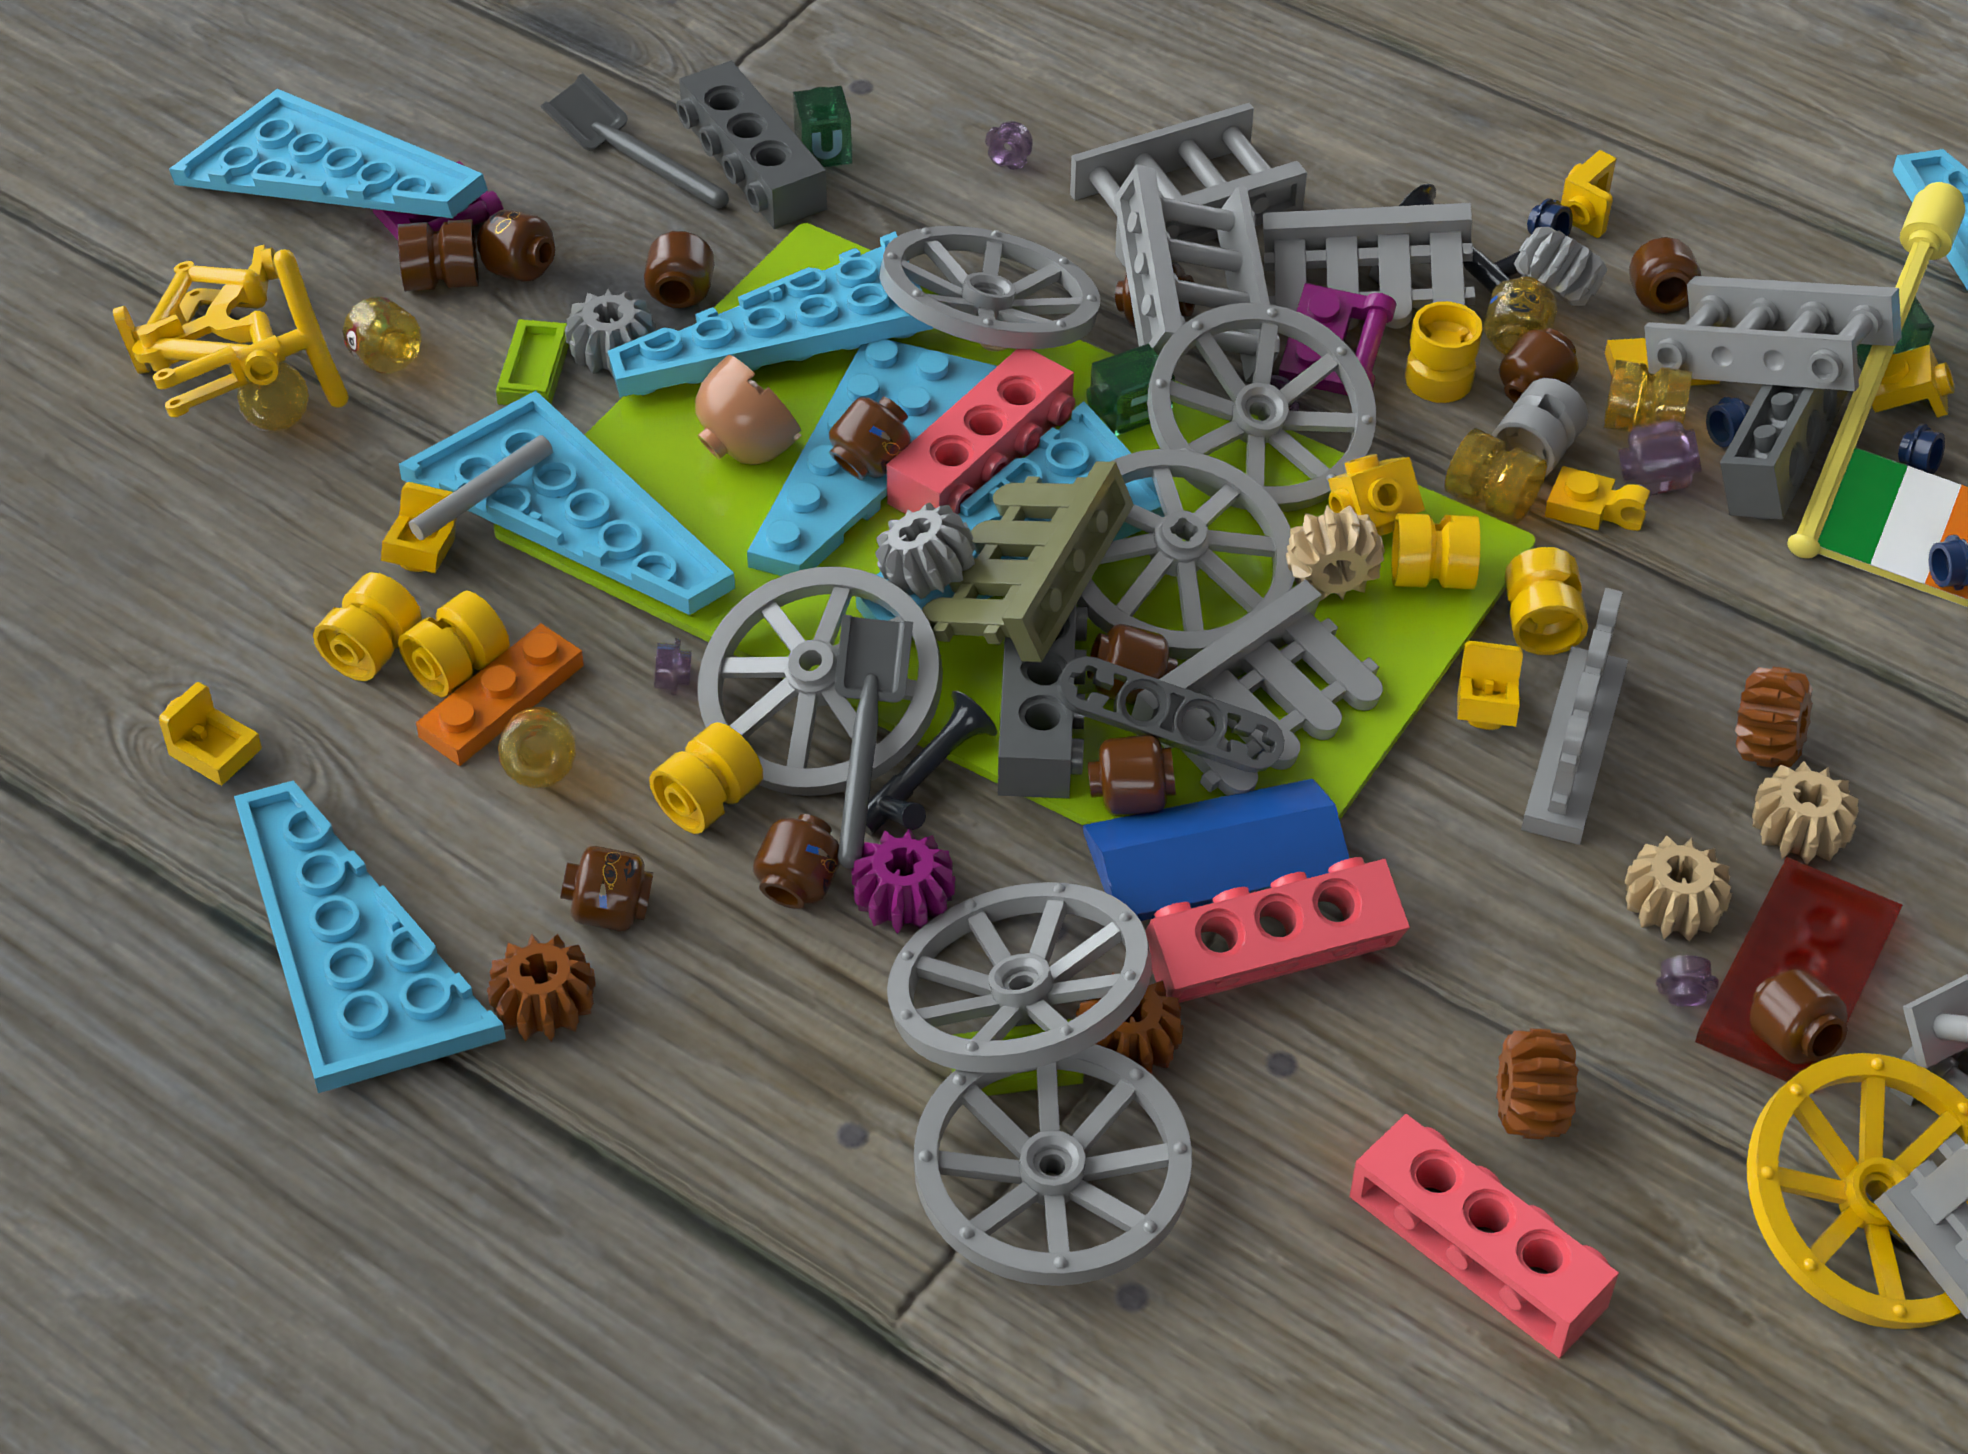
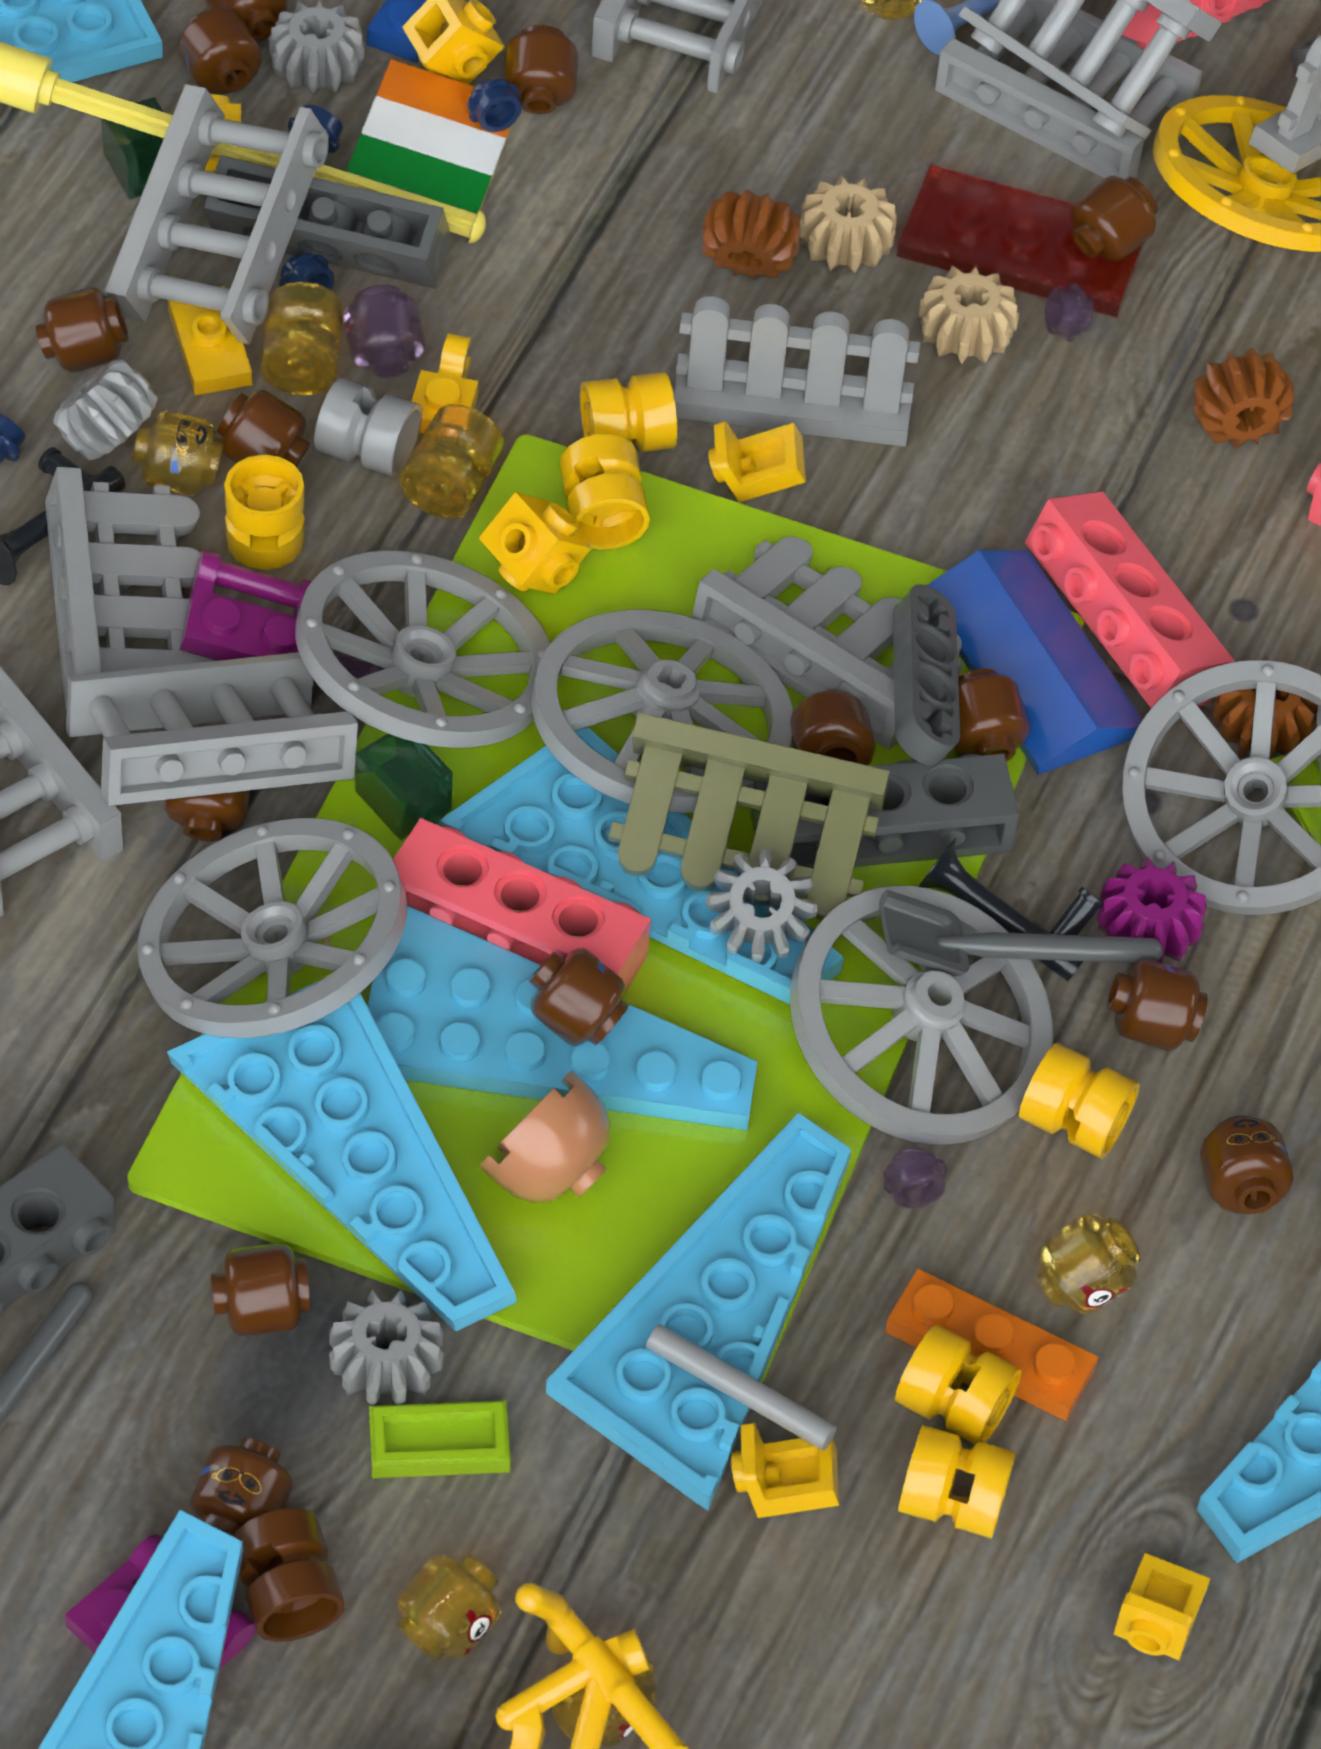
camera: 105 degrees left, 5 degrees up
(1335, 552) = (639, 566): tan gear -> none

